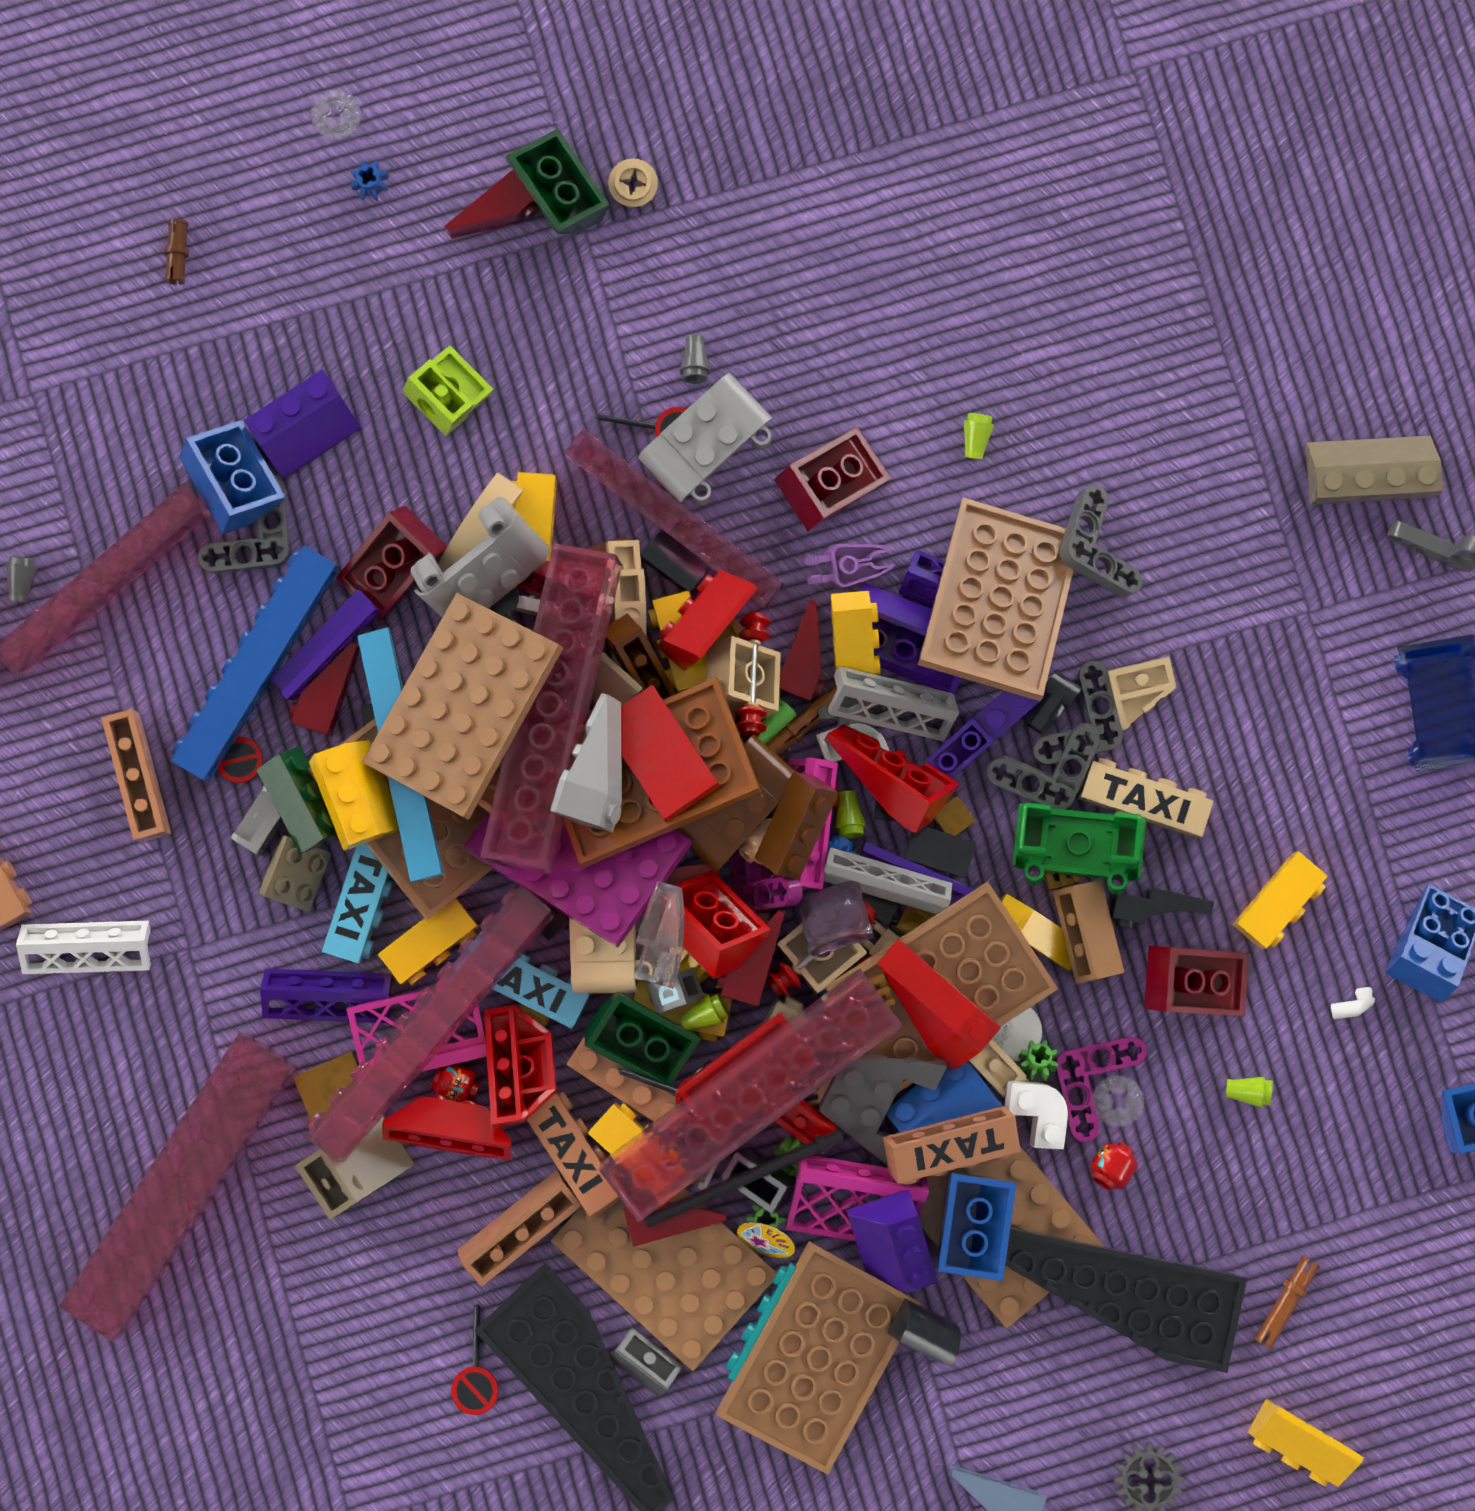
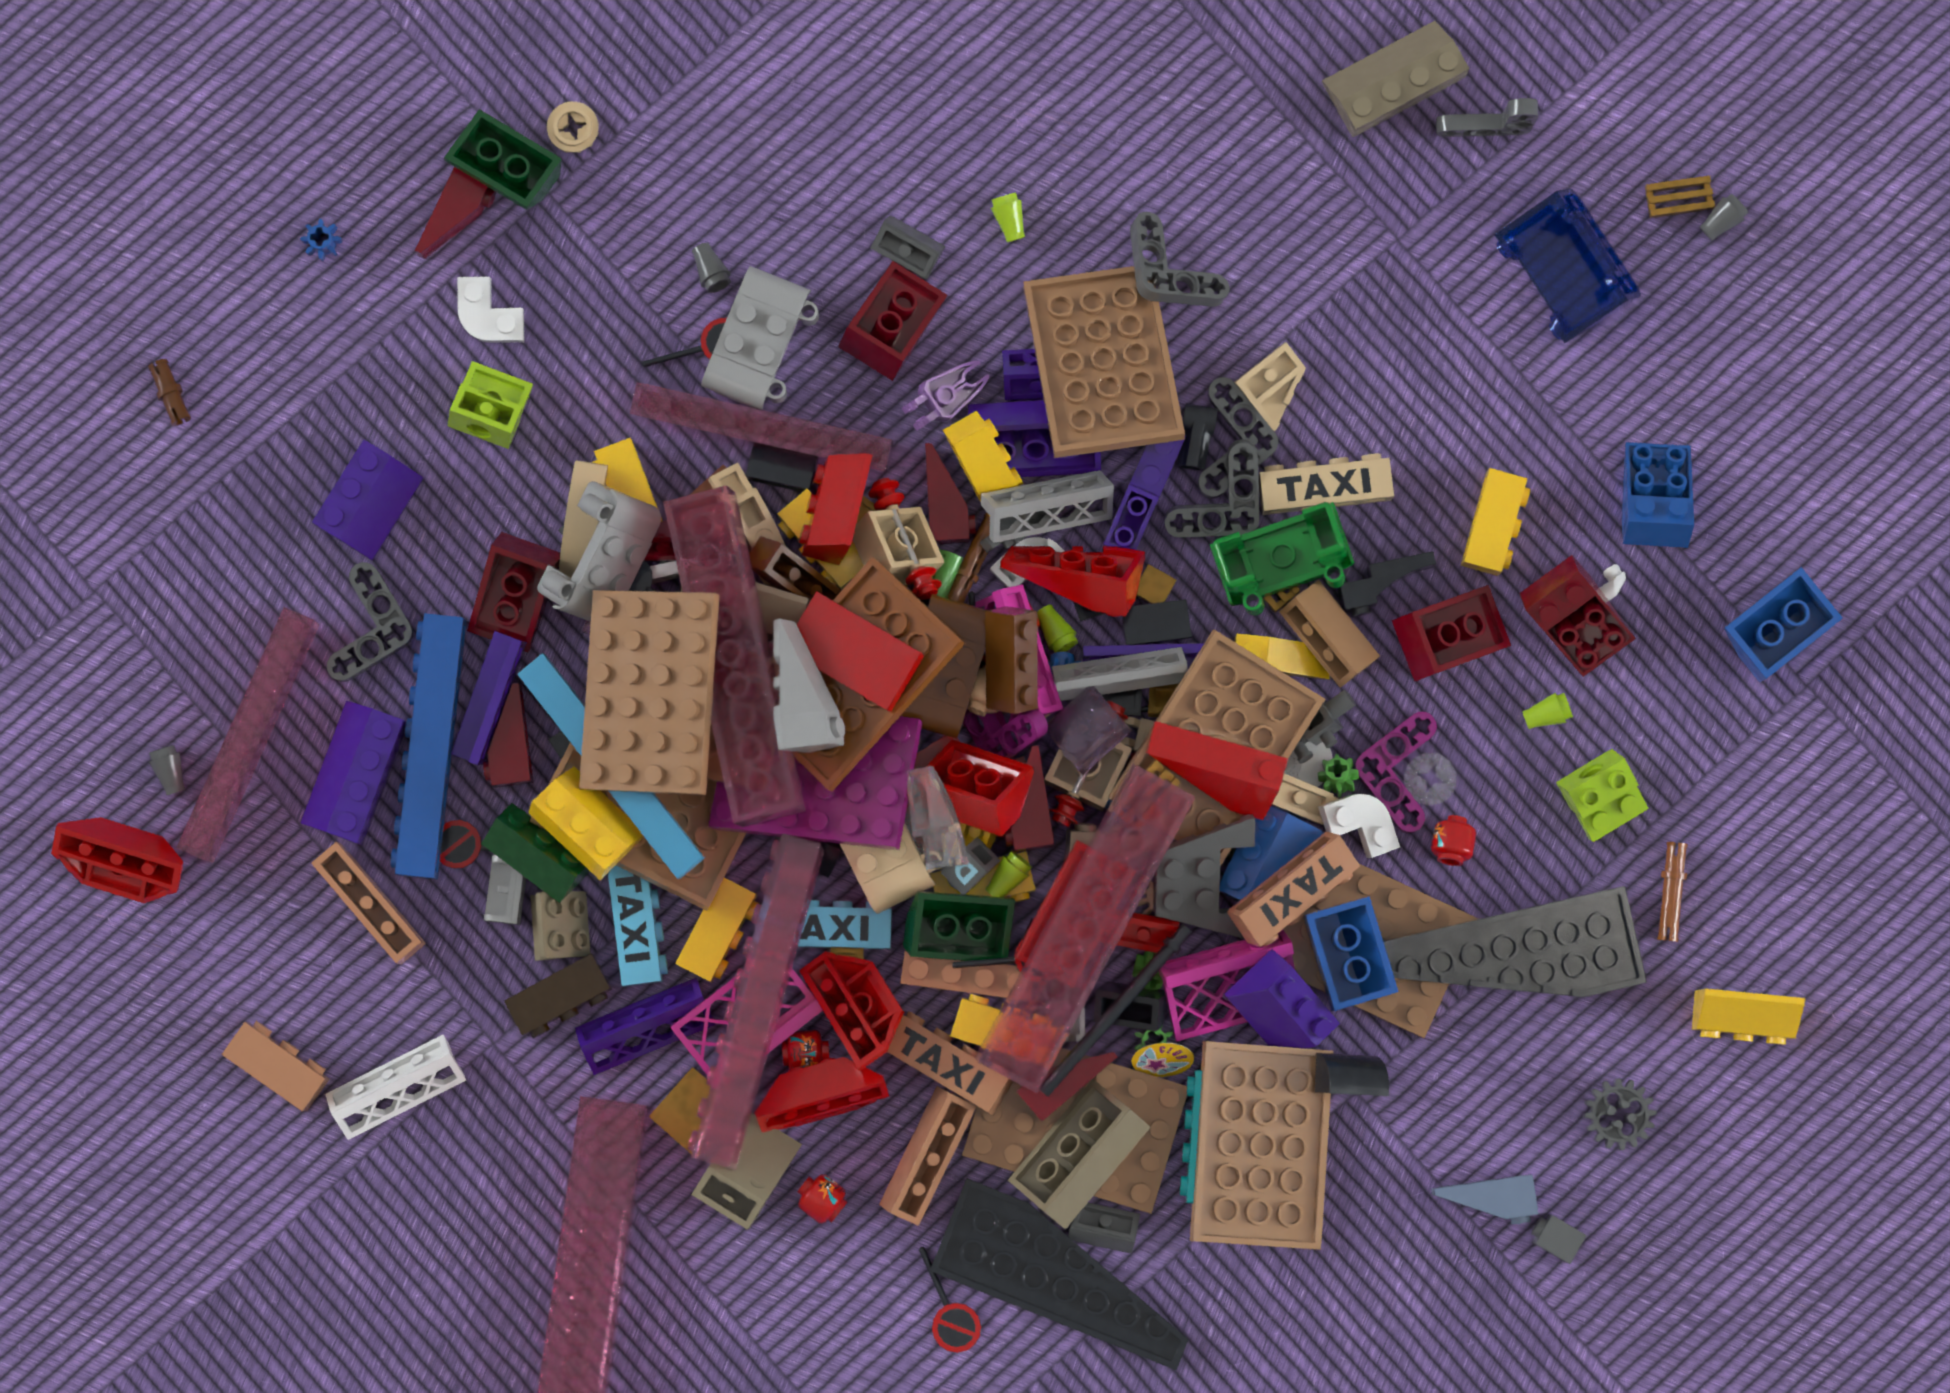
camera: 20 degrees left, 0 degrees up
(179, 656) = (354, 772): none -> dark purple slope
(231, 475) = (323, 580): blue slope -> none
(263, 935) = (558, 996): none -> dark brown brick
(327, 125) = (258, 206): clear gear -> none
(409, 1221) = (821, 1198): none -> red head
(475, 310) = (482, 320): none -> white plate
(652, 1290) = (1079, 1153): none -> dark tan slope
(875, 421) = (907, 247): none -> dark grey slope
(1047, 1010) = (1324, 725): none -> dark grey piece
(1265, 1186) = (1603, 794): none -> lime brick
(1315, 1017) = (1576, 616): none -> dark red slope

